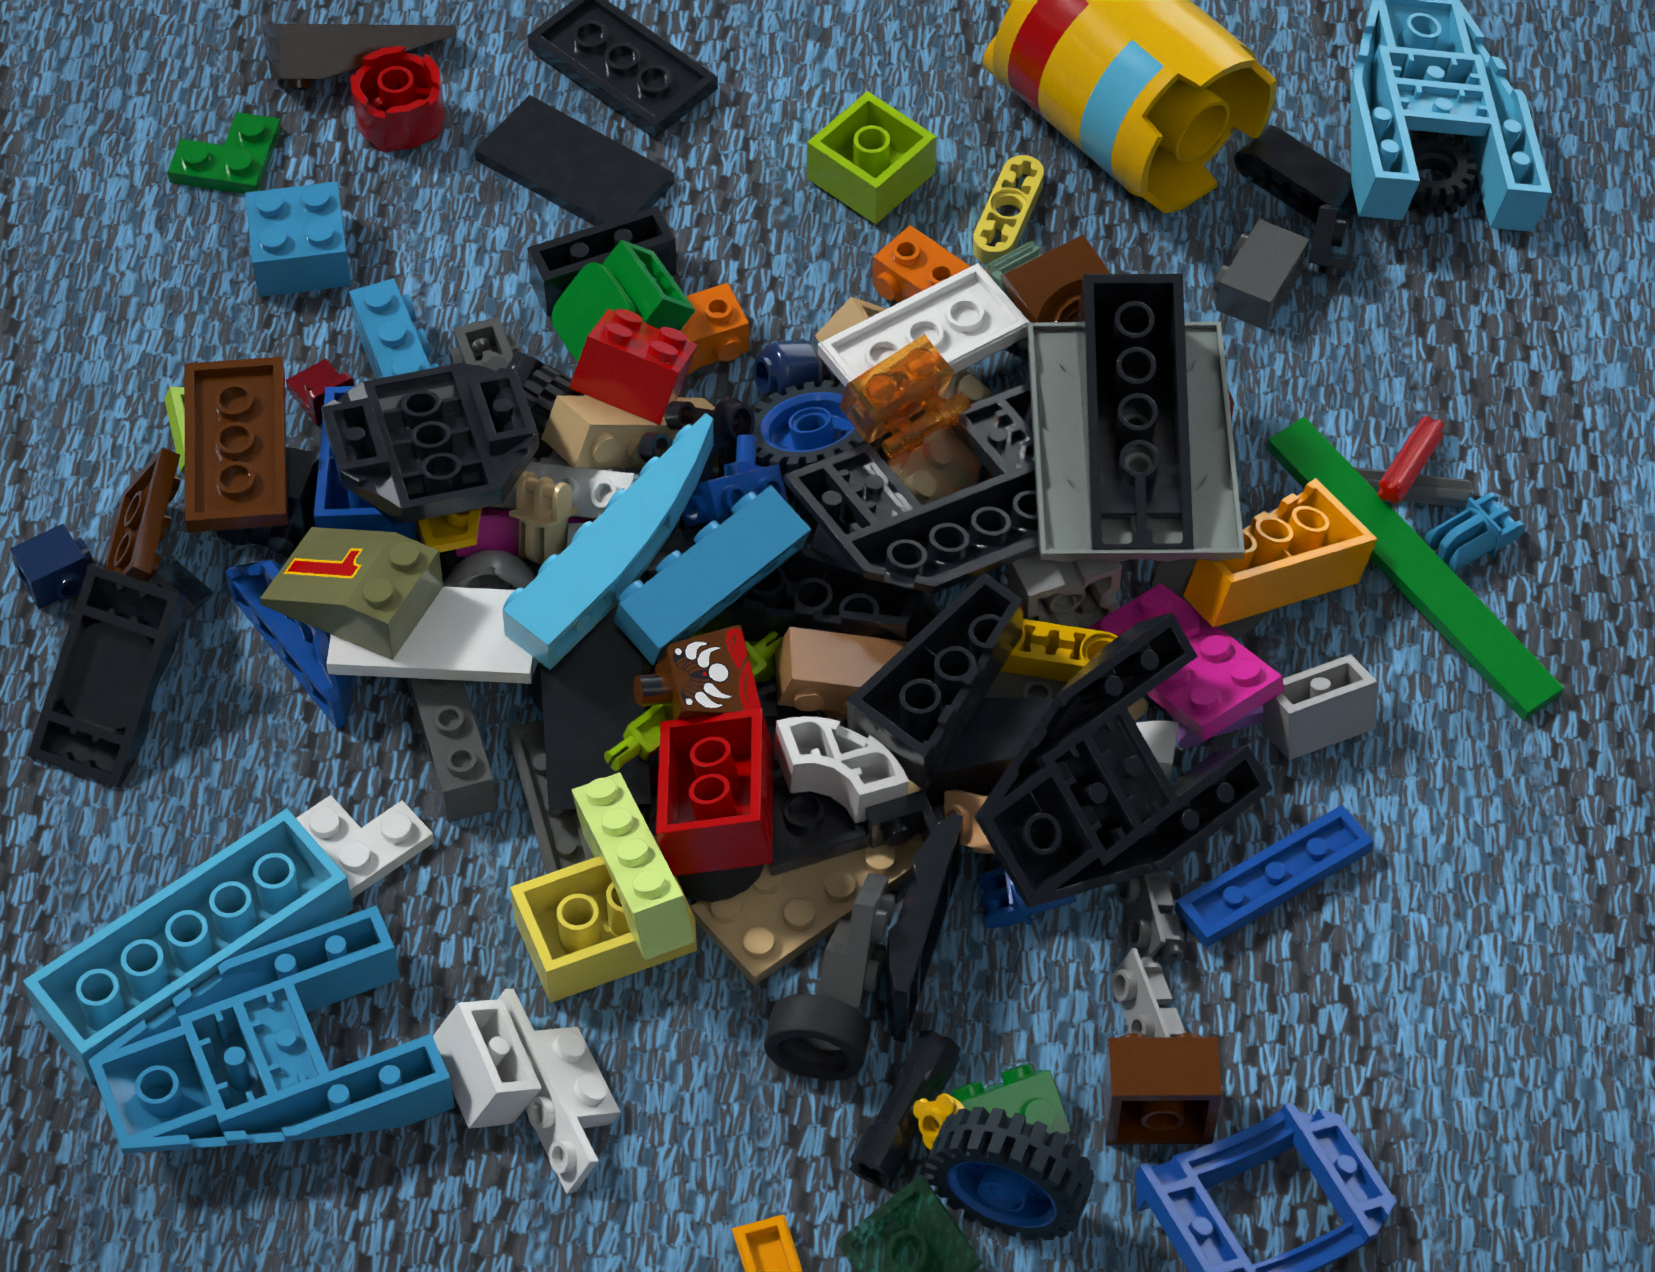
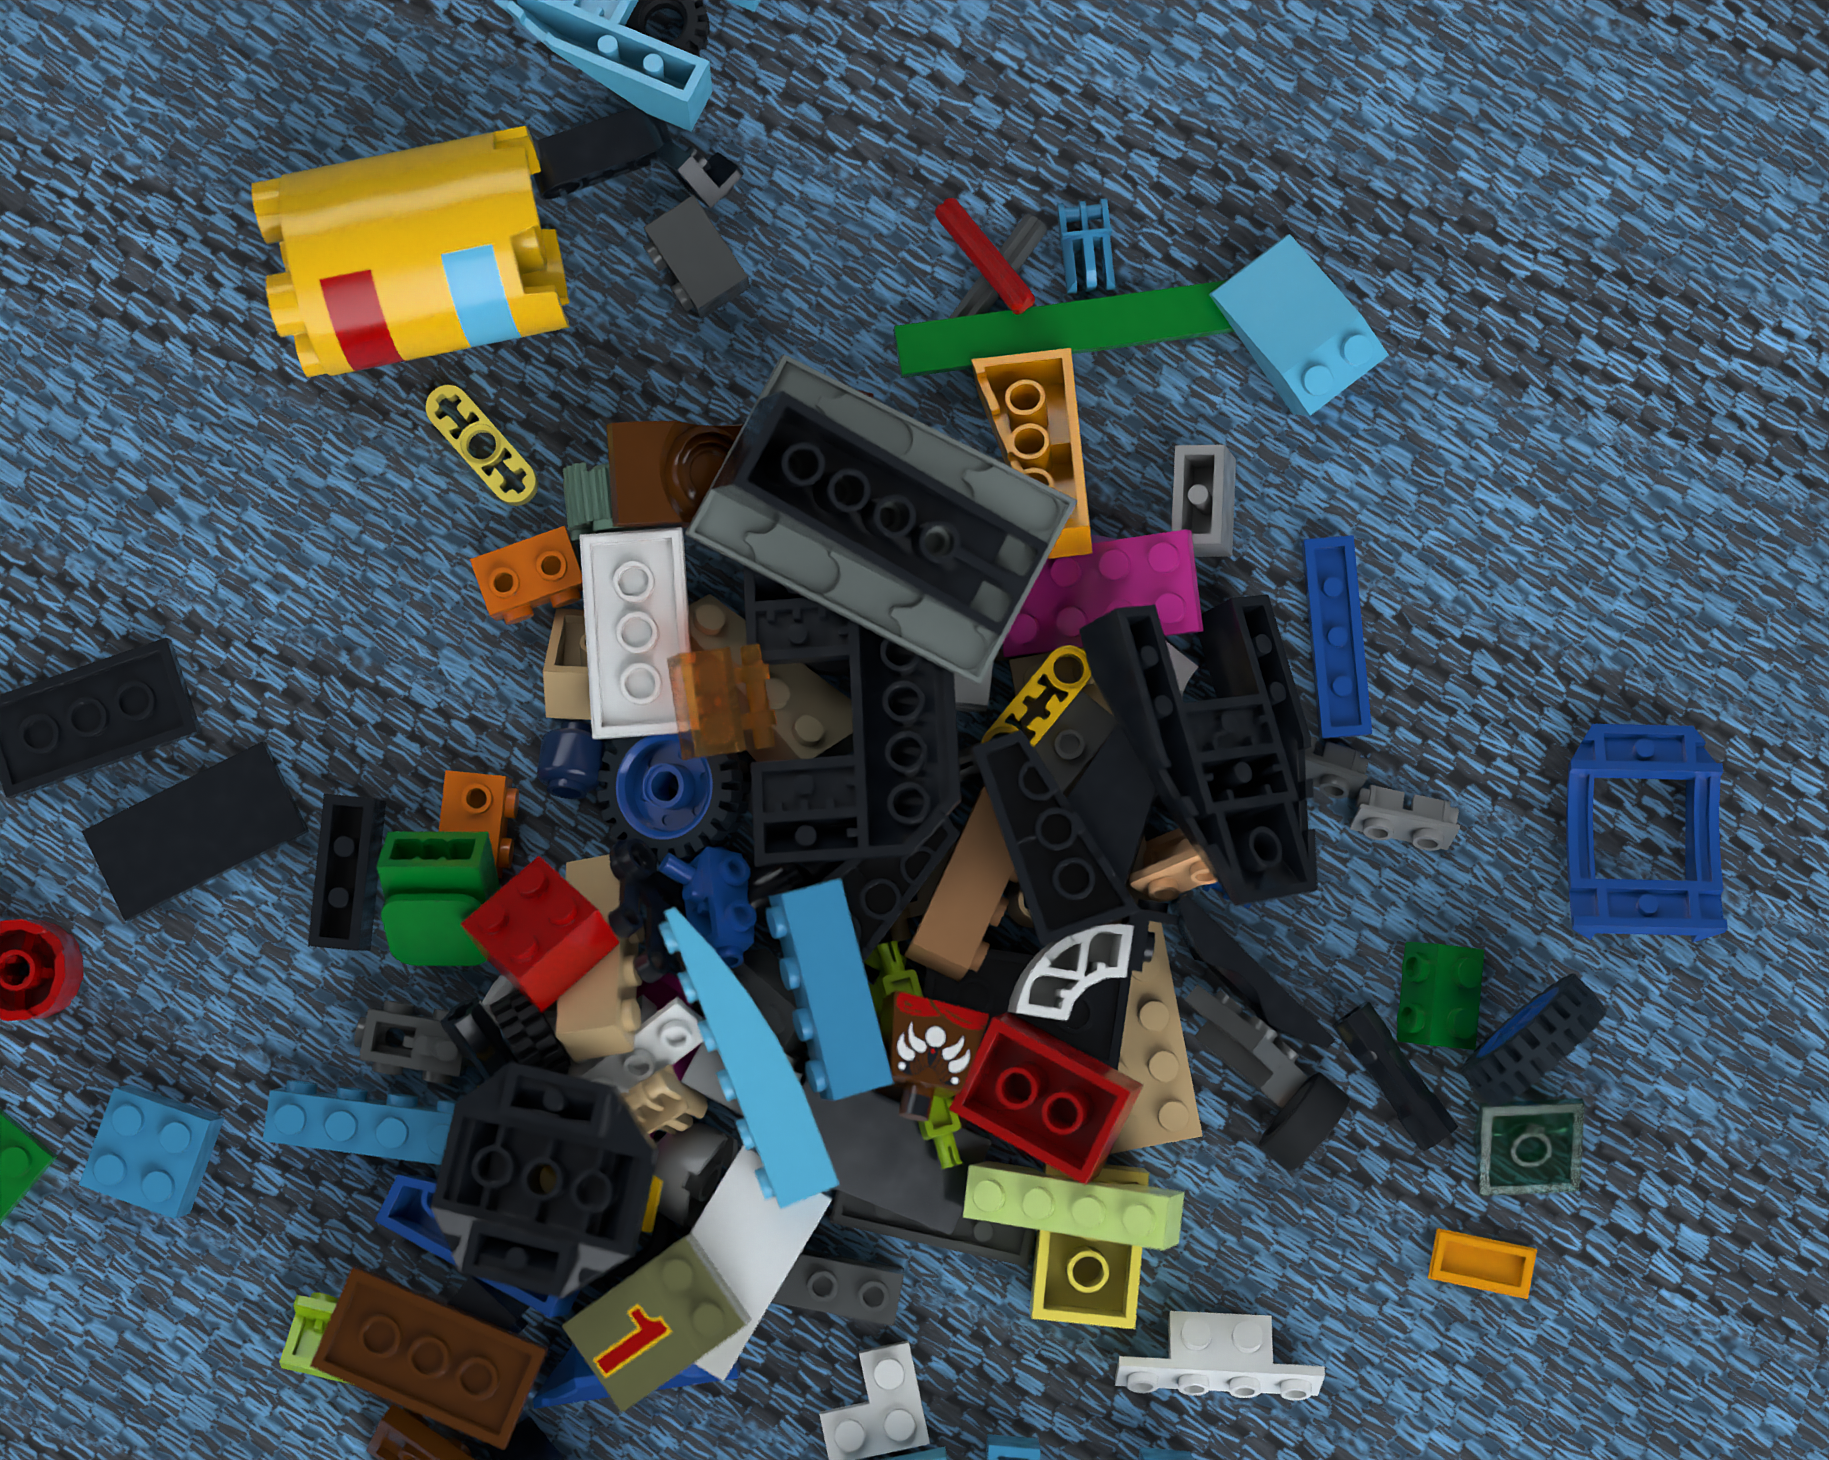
camera: 60 degrees left, 30 degrees up
(310, 384) = (347, 1209): dark red bracket -> none
(486, 1063) = (1180, 1415): white brick -> none
(871, 157) = (358, 546): lime brick -> none
(933, 1114) = (1438, 1060): yellow plate -> none
(1161, 1089) = (1507, 863): reddish brown brick -> none
(1521, 711) = (1298, 326): none -> medium azure slope

